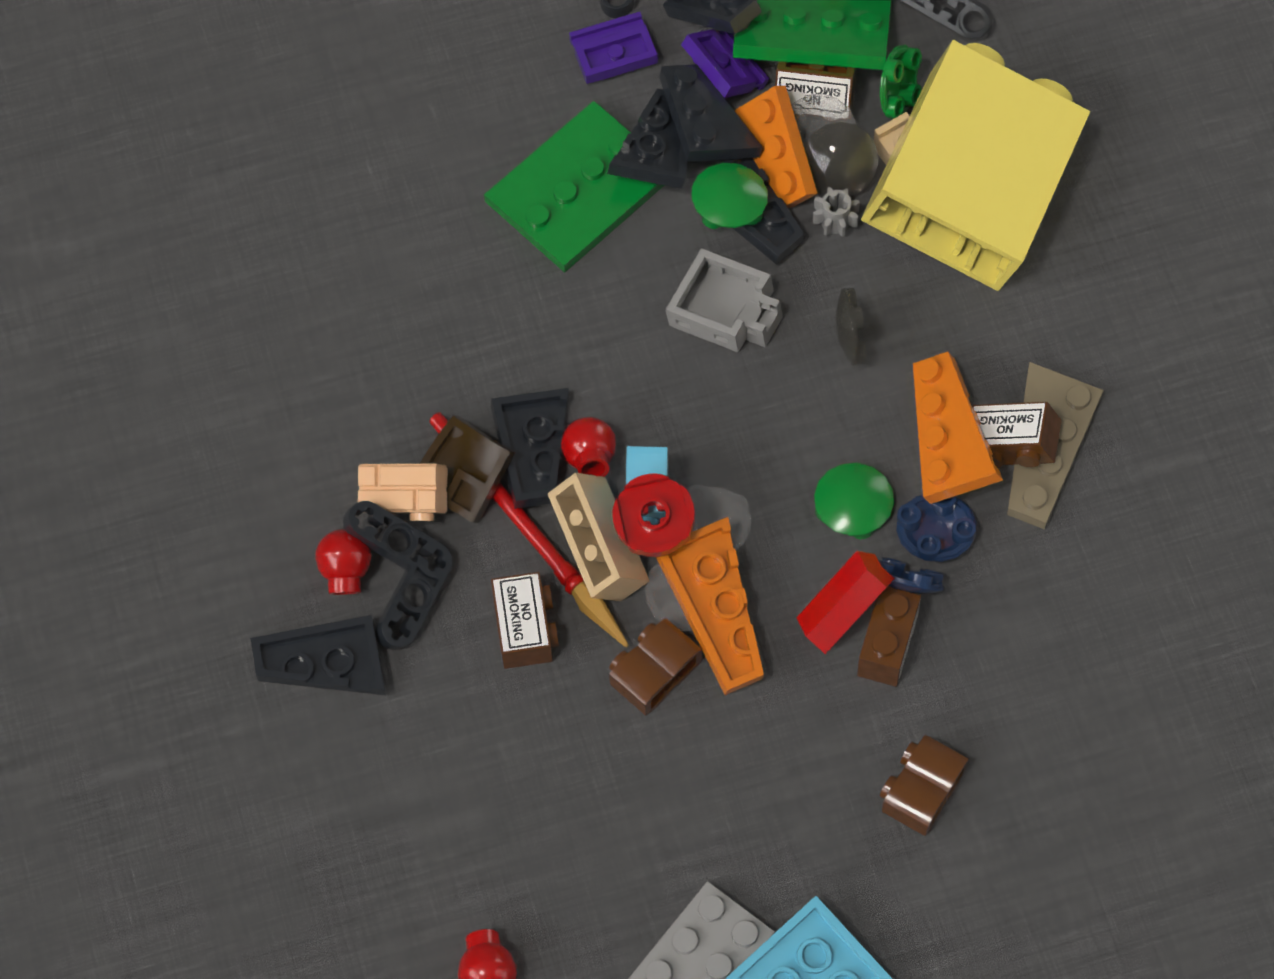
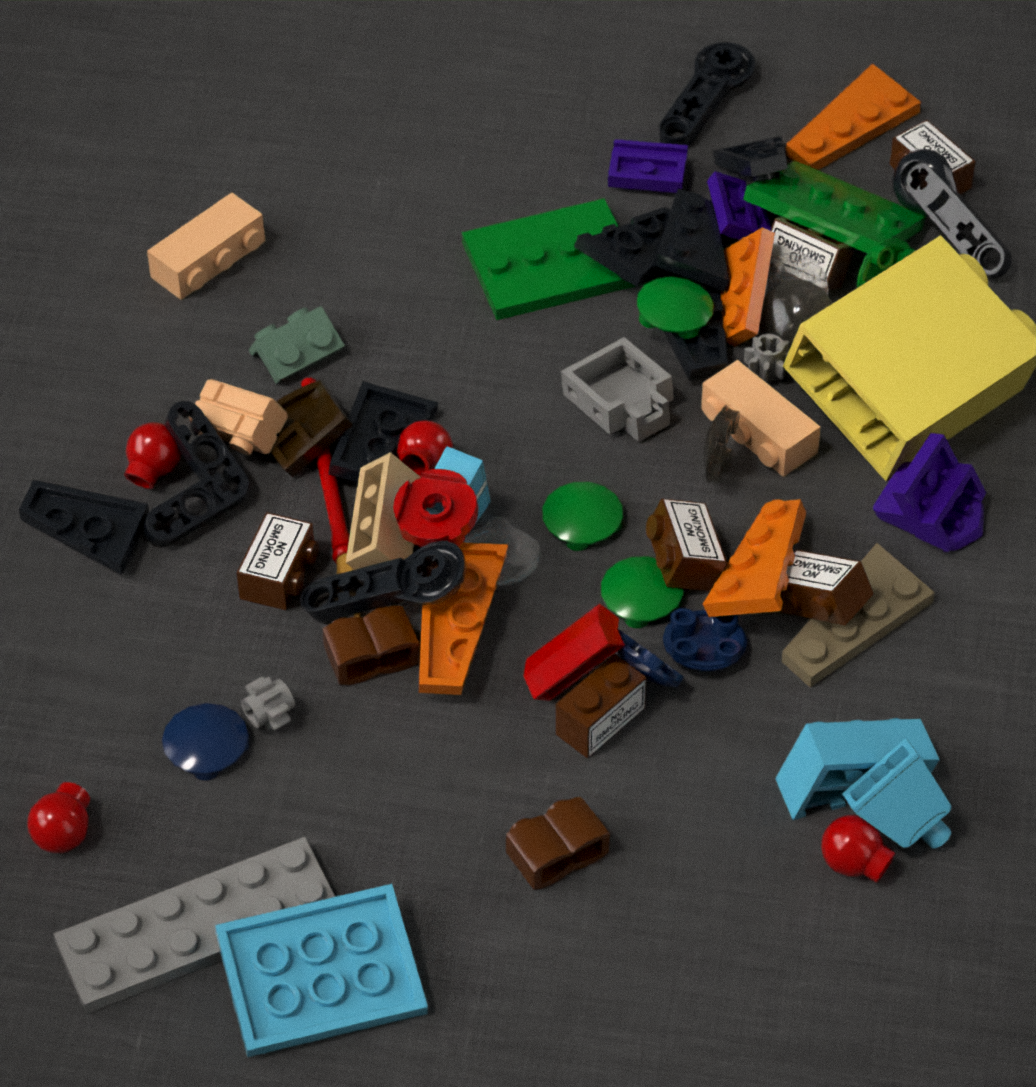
camera: 25 degrees right, 15 degrees down
(257, 314) = (206, 246): none -> light nougat brick
(402, 382) = (297, 344): none -> sand green bracket
(562, 826) = (205, 739): none -> dark blue dish
(601, 768) = (268, 703): none -> light grey gear
(651, 601) = (390, 583): none -> black beam
(759, 445) = (582, 514): none -> green dish
(874, 441) = (685, 544): none -> brick
(880, 281) = (768, 421): none -> light nougat brick
(1056, 298) = (935, 497): none -> dark purple piece
(1129, 592) = (837, 754): none -> medium azure wedge
(1172, 673) = (855, 848): none -> red piece
(1192, 614) = (902, 799): none -> medium azure torso

